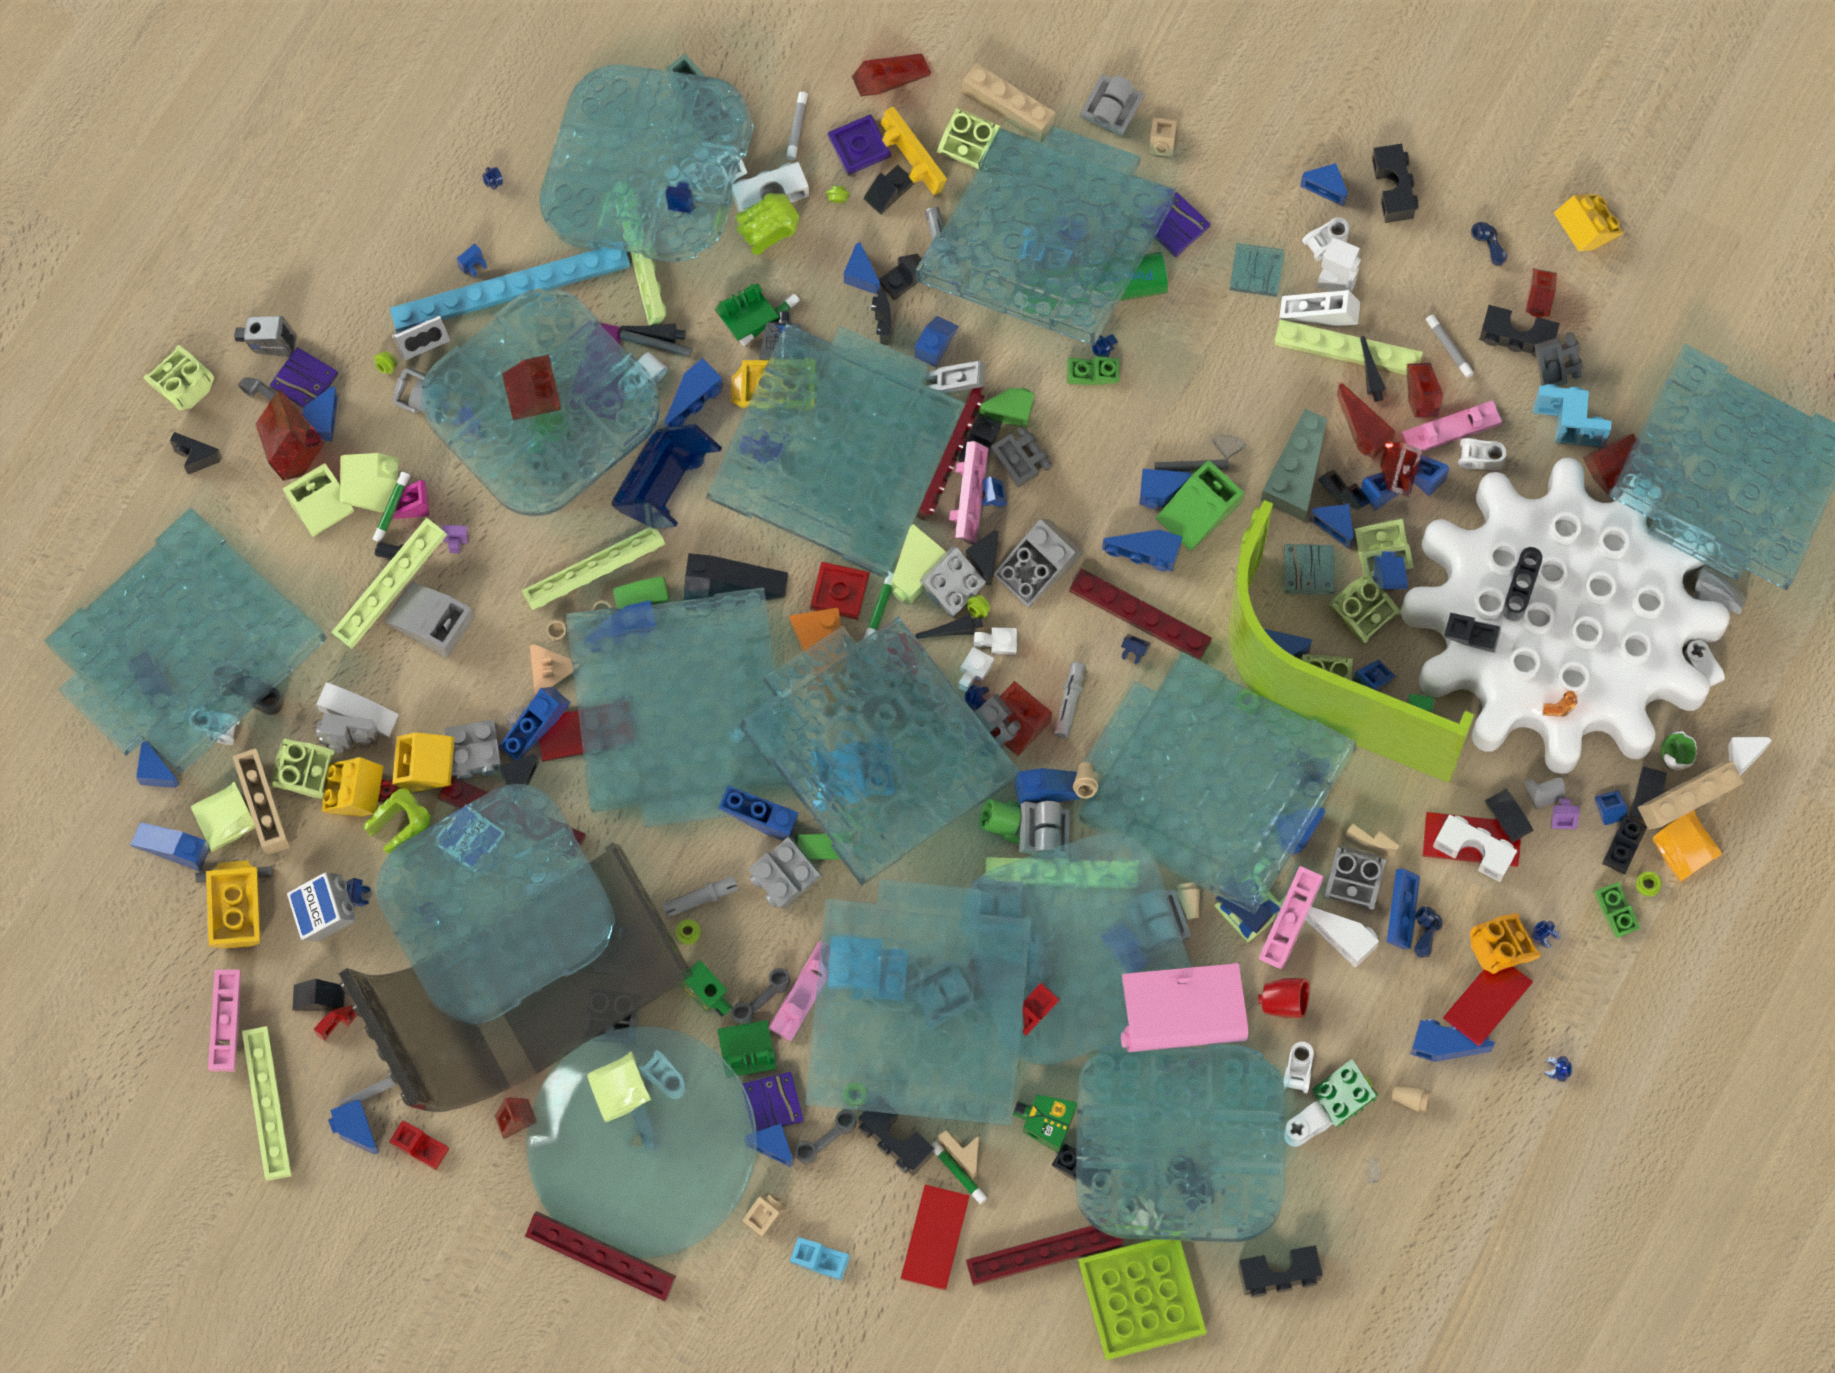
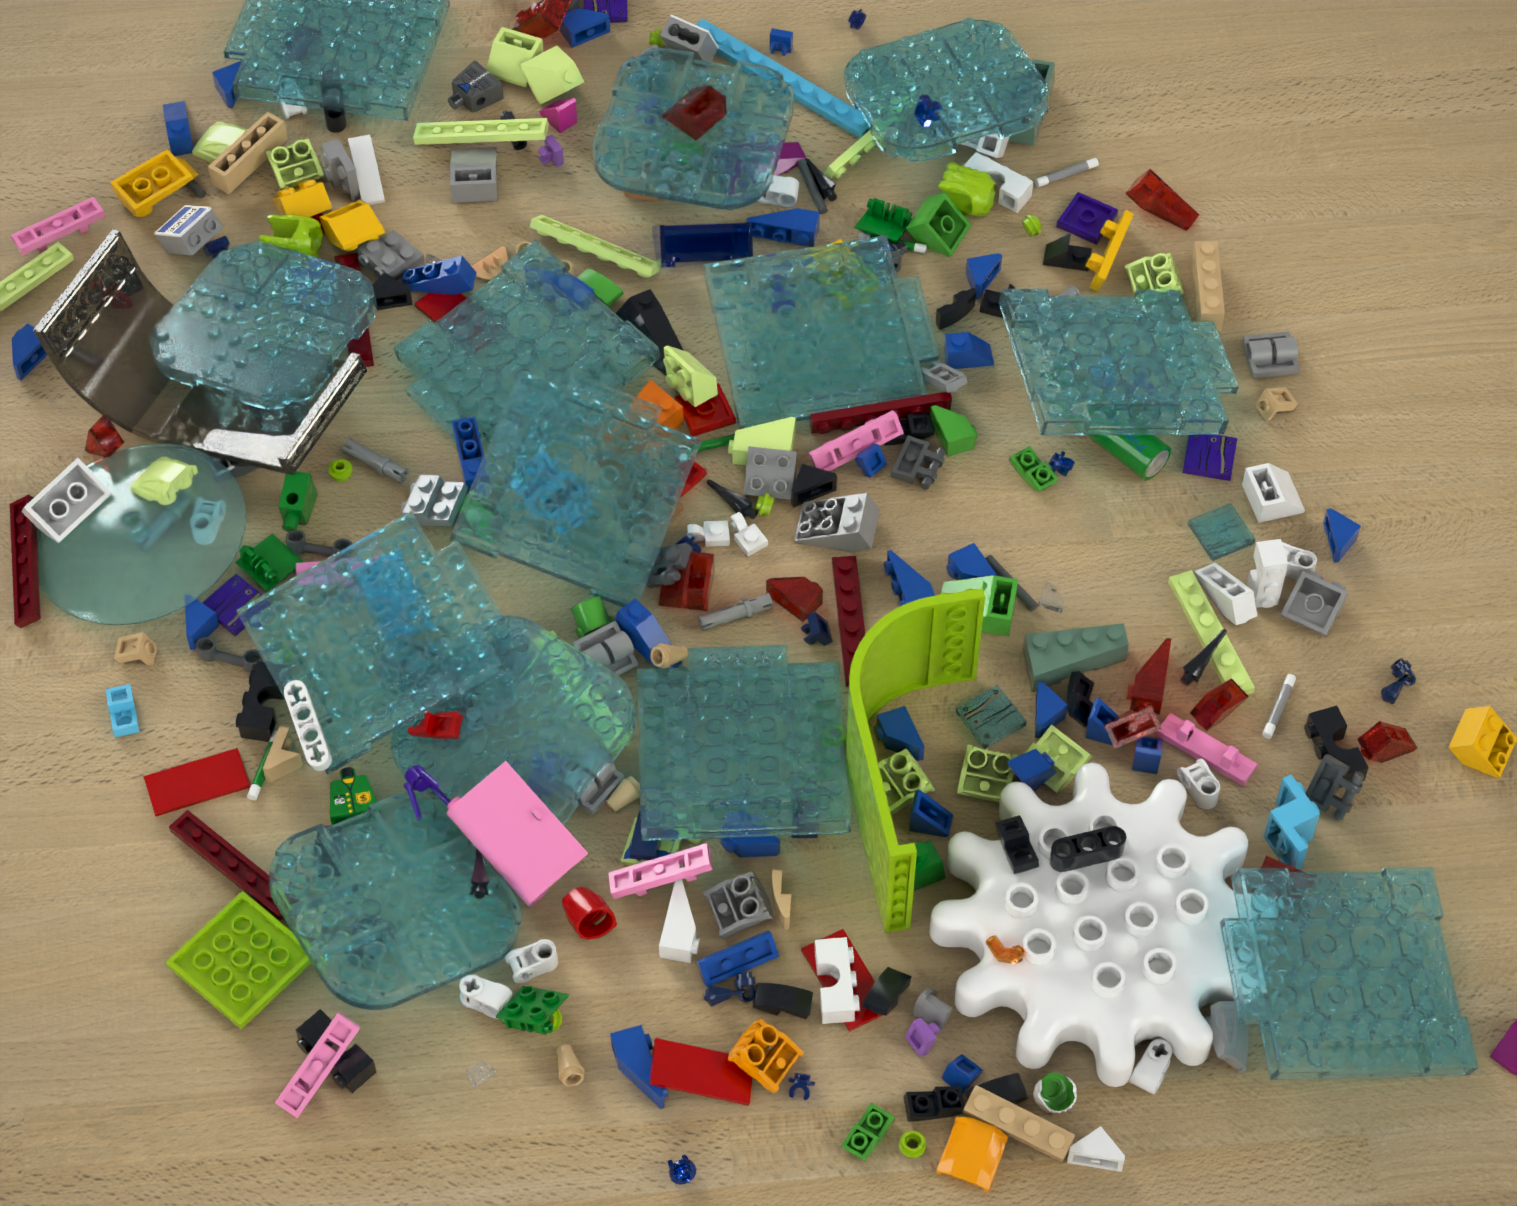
camera: 55 degrees right, 15 degrees down
(327, 556) = (475, 88): none -> dark grey torso
(391, 507) = (549, 99): green bar -> none
(419, 1145) = (41, 399): red slope -> none
(575, 1184) = (66, 501): none -> white slope
(782, 270) = (939, 225): none -> bright green slope
(808, 582) = (688, 376): none -> yellowish green slope
(966, 1114) = (310, 724): none -> white beam
(1079, 1053) = (420, 780): none -> dark purple plant
(1090, 641) = (796, 595): none -> clear red slope
(1208, 1063) = (479, 878): none -> black piece
(1252, 206) = (1271, 492): none -> white slope
(1294, 1290) = (317, 1065): none -> bright pink hinge
(1380, 250) = (1315, 603): none -> light grey plate
(1392, 164) = (1373, 594): black arch -> none
(1462, 898) = (778, 997): none -> black slope

